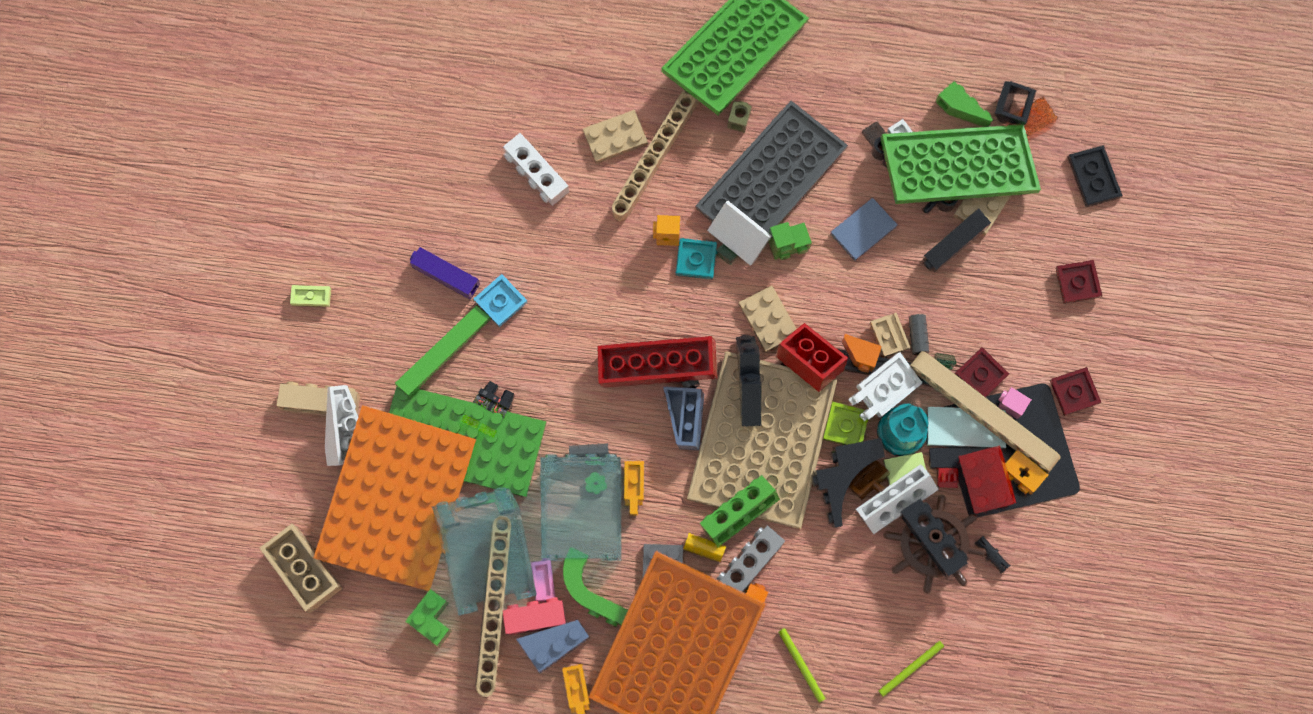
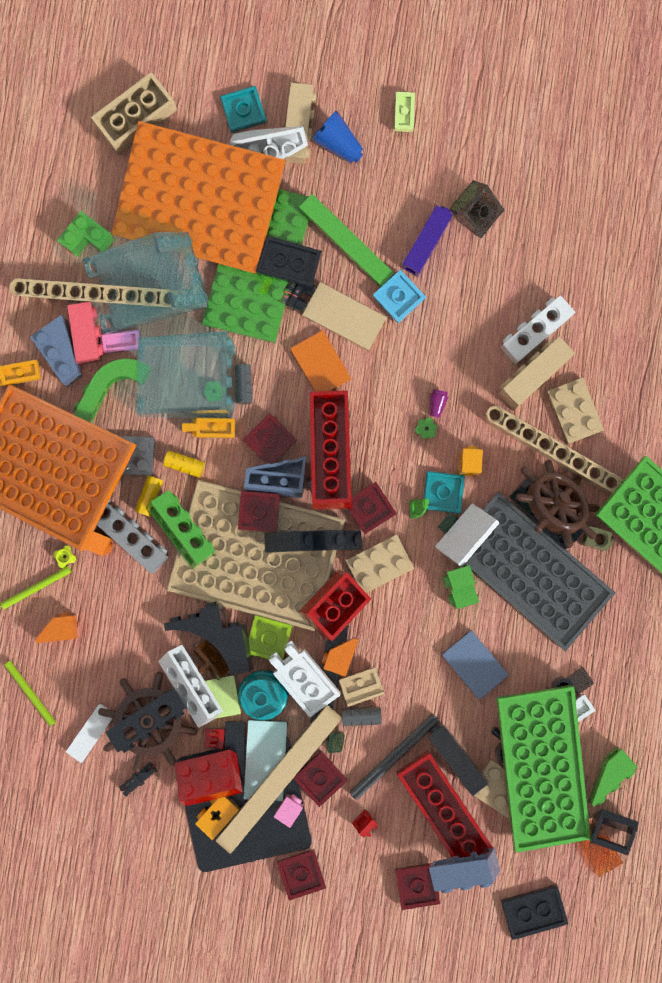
camera: 90 degrees right, 10 degrees up
(299, 458) = (243, 109): none -> teal tile
(336, 359) = (338, 139): none -> blue cone
(412, 225) = (477, 208): none -> clear smoke slope
(464, 405) = (289, 262): none -> black tile
(519, 354) = (344, 316): none -> tan tile
(567, 377) = (320, 363): none -> orange tile
(580, 169) = (531, 377): none -> tan brick
(607, 263) = (437, 402): none -> magenta cone
(637, 271) = (420, 429): none -> bright green plant
(645, 426) = (269, 439): none -> dark red plate
(671, 512) = (184, 463): none -> yellow axle
(711, 155) = (552, 507): none -> reddish brown brick
(712, 281) = (418, 507): none -> bright green tile
(714, 323) = (371, 508): none -> dark red plate
(720, 434) = (258, 511): none -> dark red plate
(768, 640) = (70, 558): none -> neon yellow plate
(844, 637) = (59, 629): none -> orange slope
(950, 605) = (89, 735): none -> white tile
(957, 305) = (394, 756): none -> dark grey axle
(1006, 254) = (443, 807): none -> red brick
(1022, 331) = (364, 824): none -> red tile
(1062, 231) = (465, 871): none -> sand blue wedge

